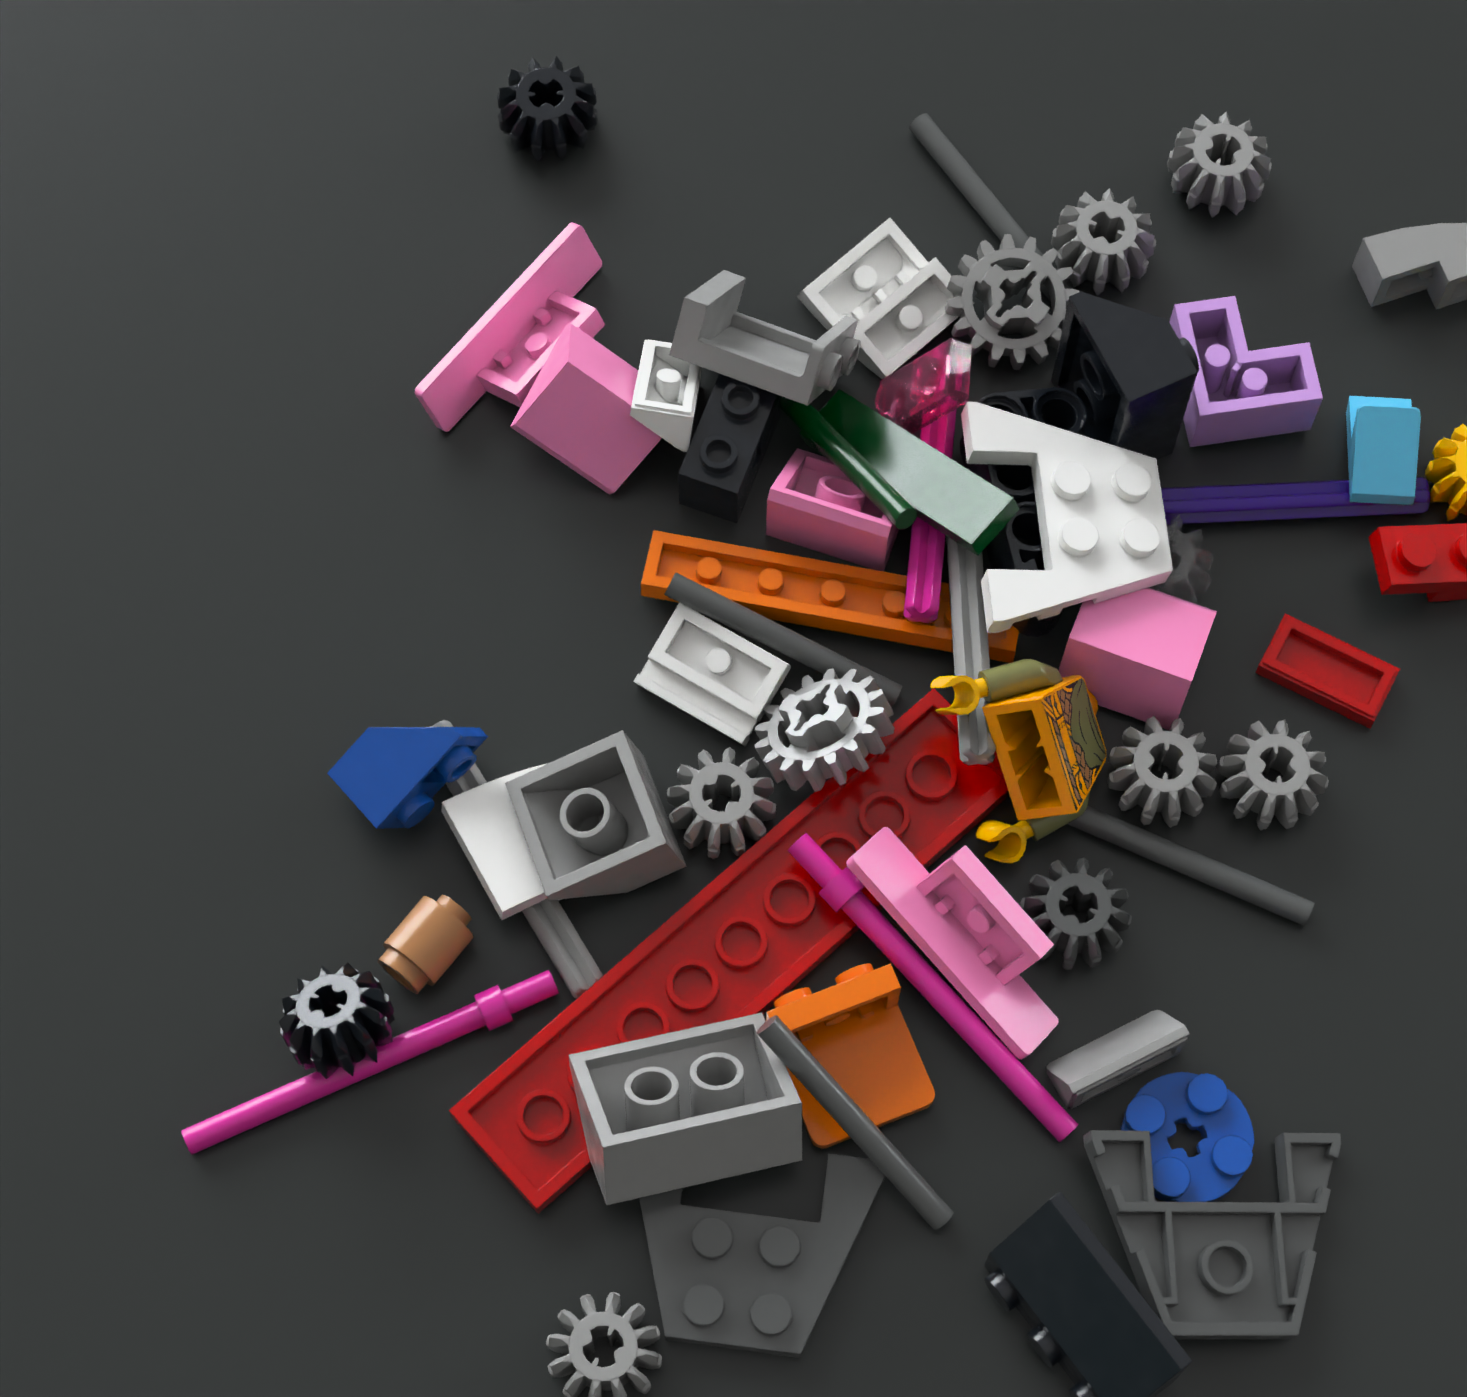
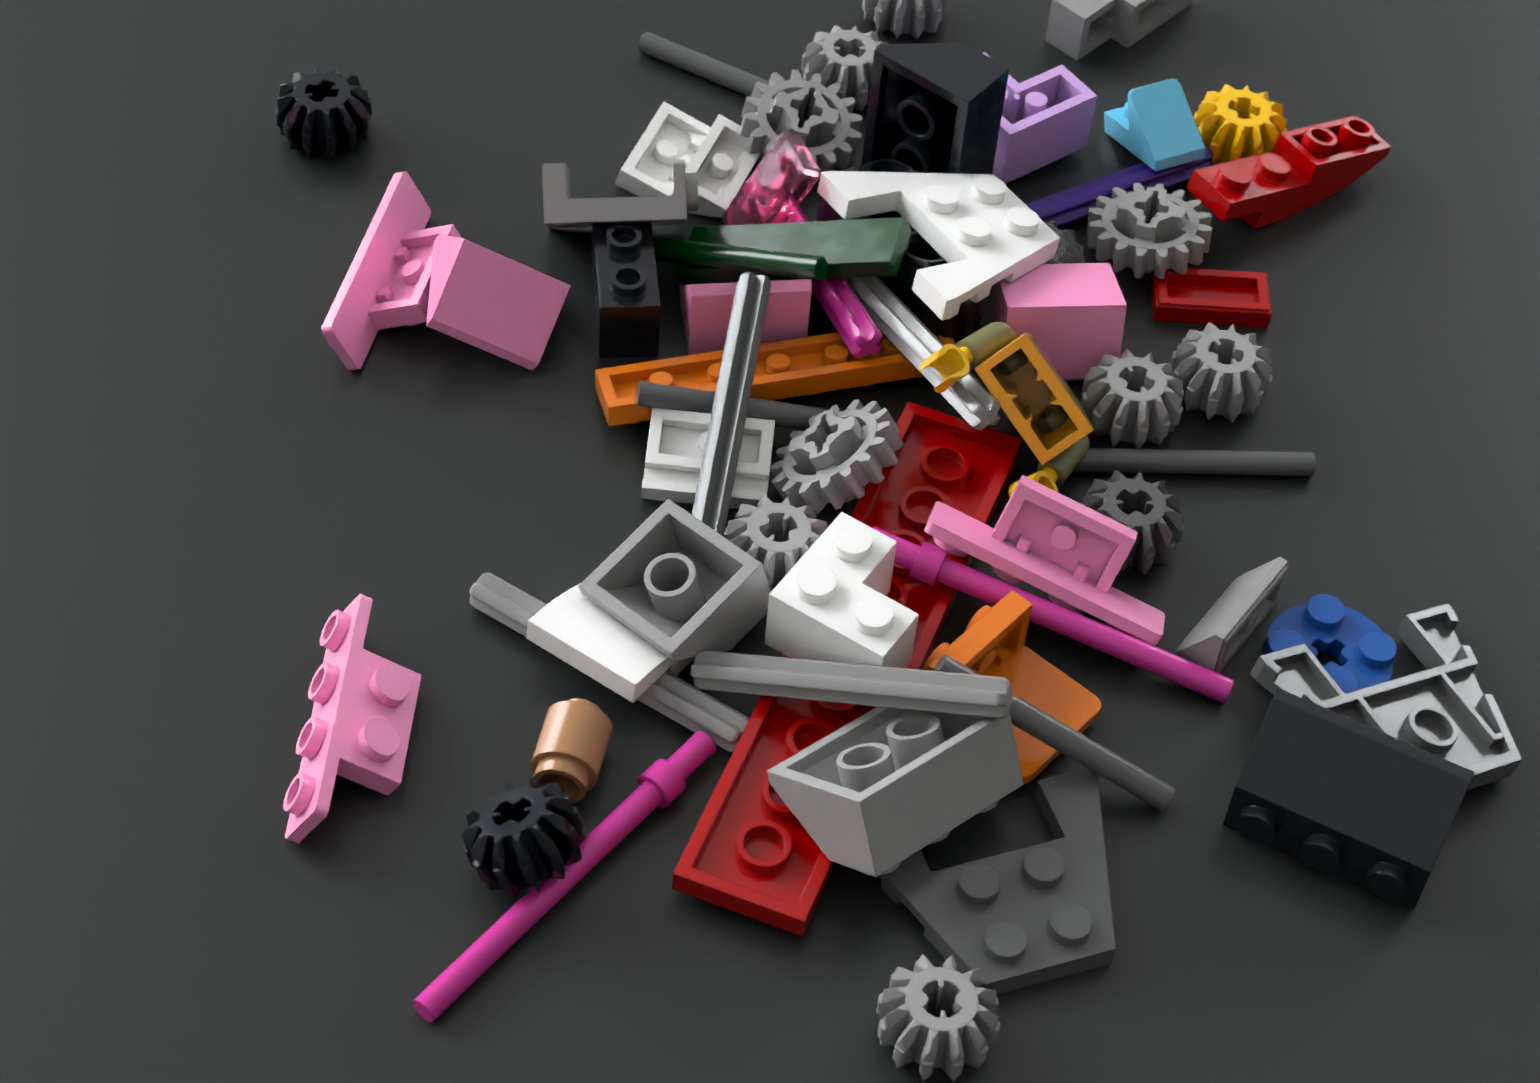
camera: 30 degrees left, 20 degrees down
(260, 833) = (356, 721): none -> bright pink bracket
(400, 769) = (472, 606): blue slope -> none
(666, 394) = (557, 257): white slope -> none
(689, 1002) = (853, 684): none -> light grey axle
(712, 909) = (837, 601): none -> white brick
(743, 640) = (731, 401): none -> dark grey axle
(1310, 593) = (1149, 230): none -> light grey gear

